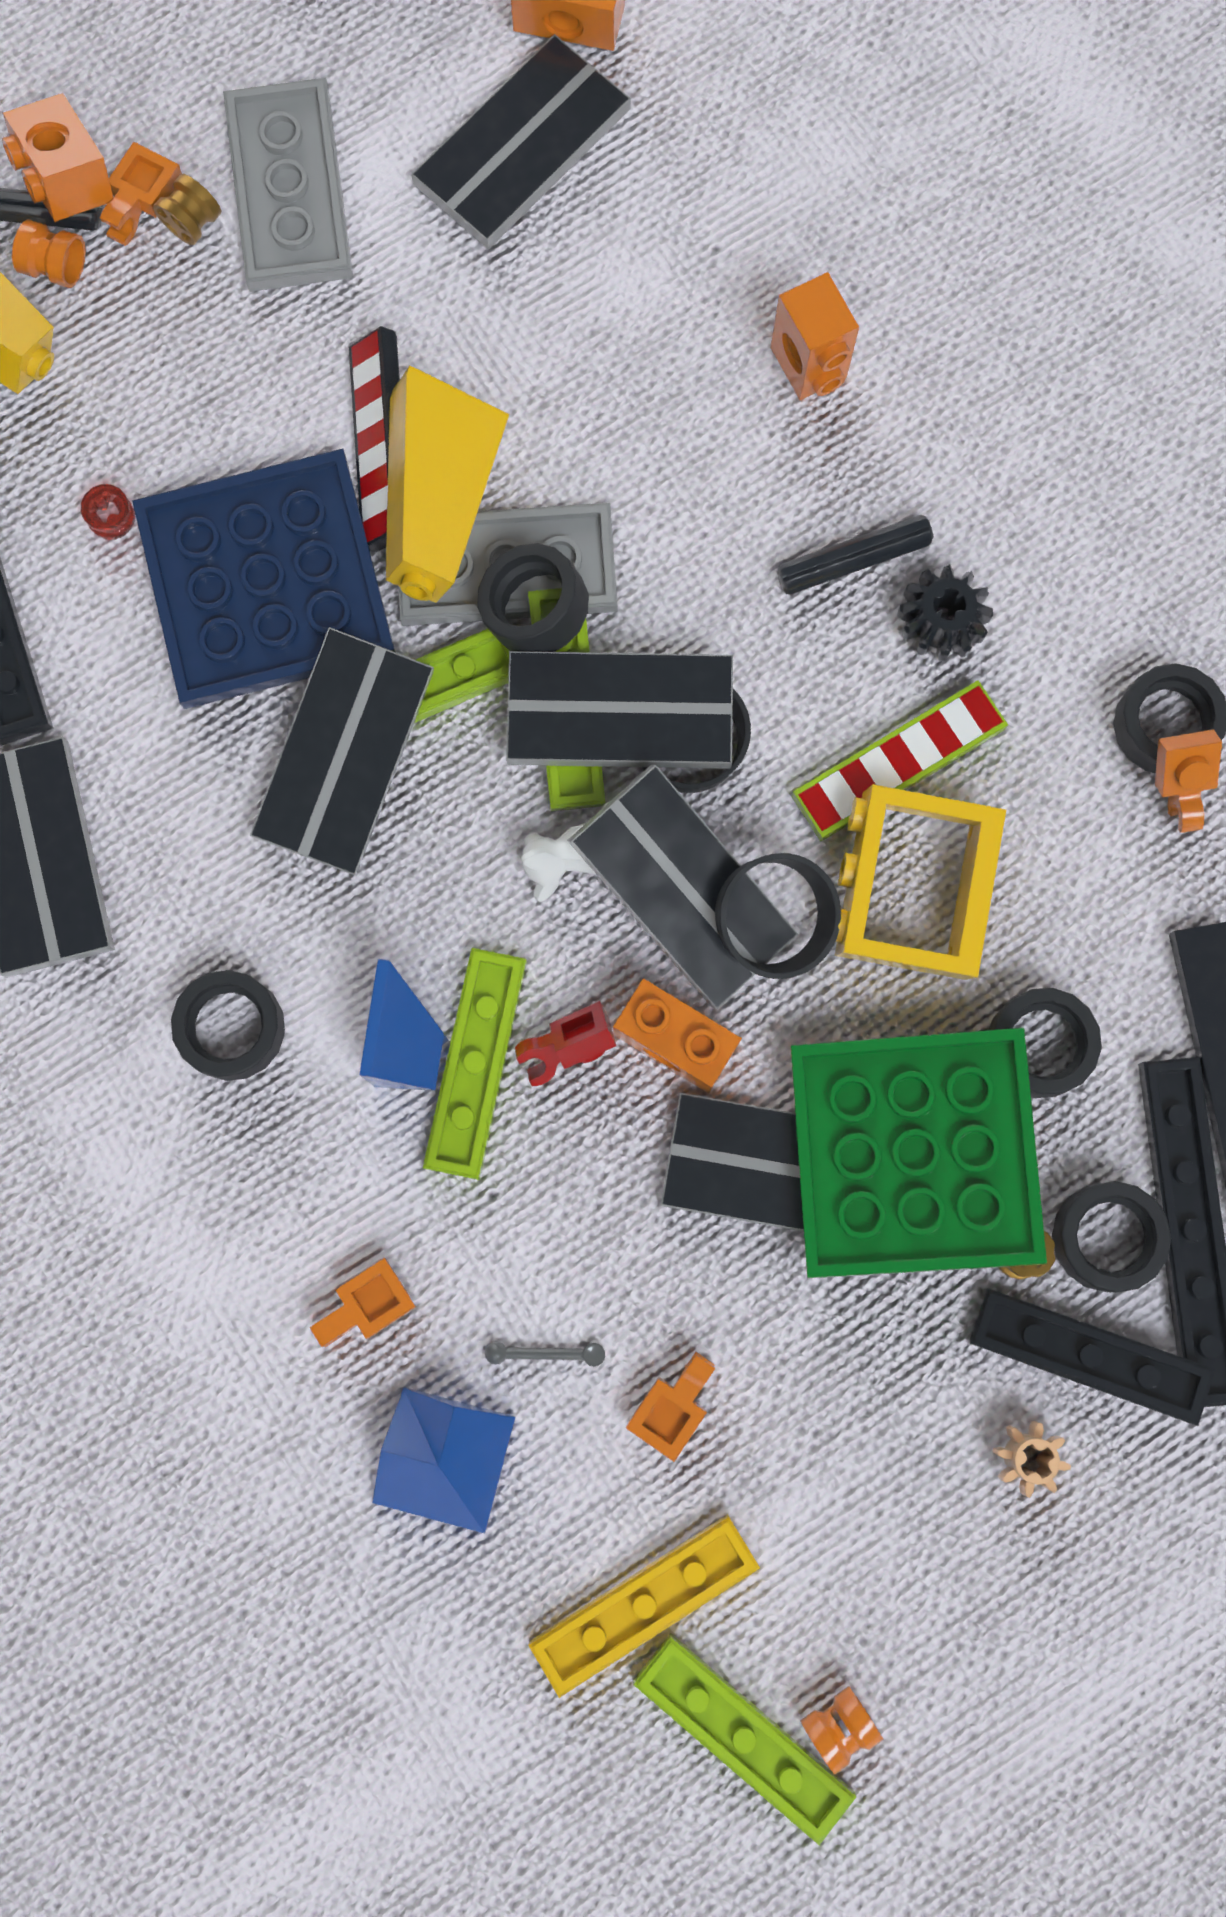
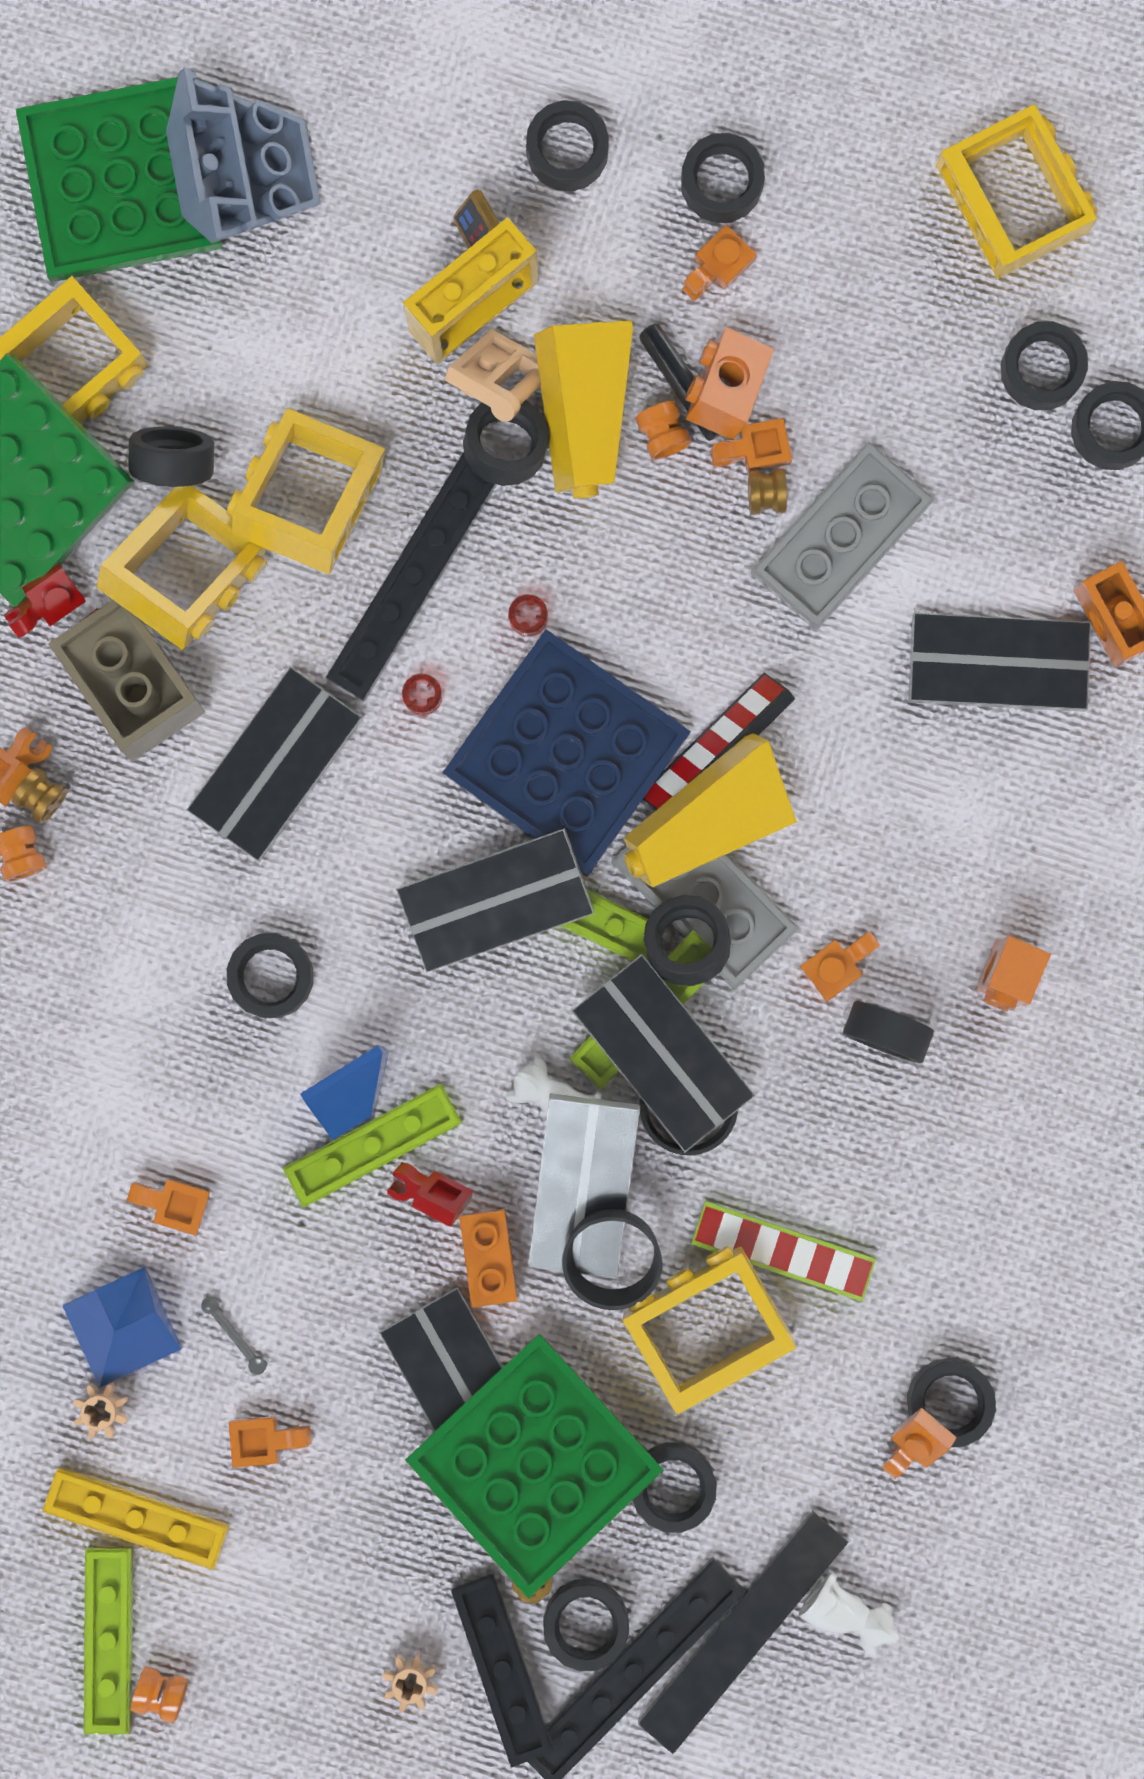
camera: 50 degrees right, 5 degrees up
(94, 684) = (411, 686): none -> clear red bush
(504, 1566) = (112, 1406): none -> light nougat gear
(674, 500) = (835, 967): none -> orange plate
(775, 490) = (888, 1032): none -> black tyre
(855, 554) = (896, 1112): black axle -> none
(954, 595) = (905, 1188): black gear -> none

